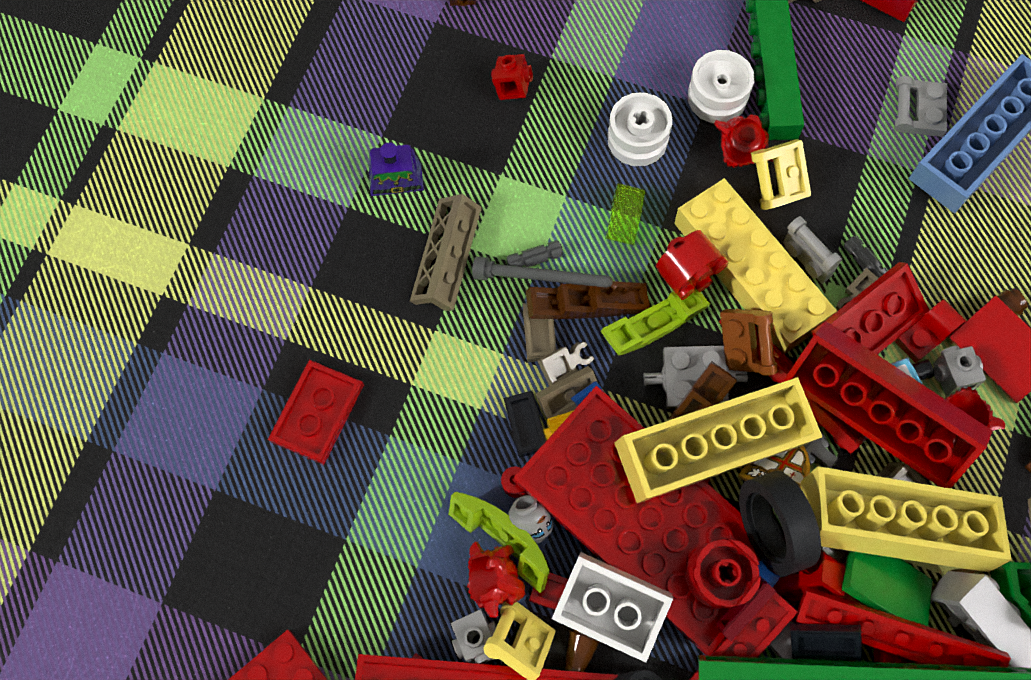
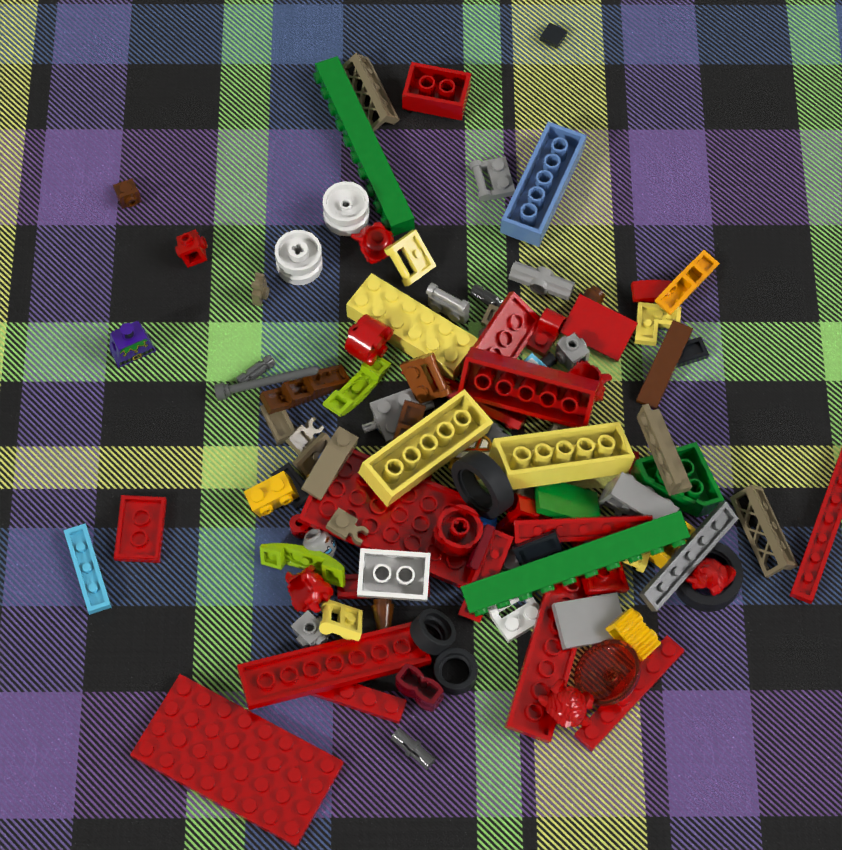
camera: 25 degrees left, 5 degrees down
(230, 442) = (87, 569): none -> medium azure plate
(450, 250) = (194, 385): dark tan fence -> none
(493, 427) = (271, 494): none -> yellow brick
(570, 508) = (345, 524): none -> dark tan plate
(577, 154) = (260, 289): none -> dark tan plate
(581, 417) = (330, 463): none -> dark tan slope
(625, 214) = (310, 320): clear neon green slope -> none
(945, 259) = (541, 280): none -> light grey piece

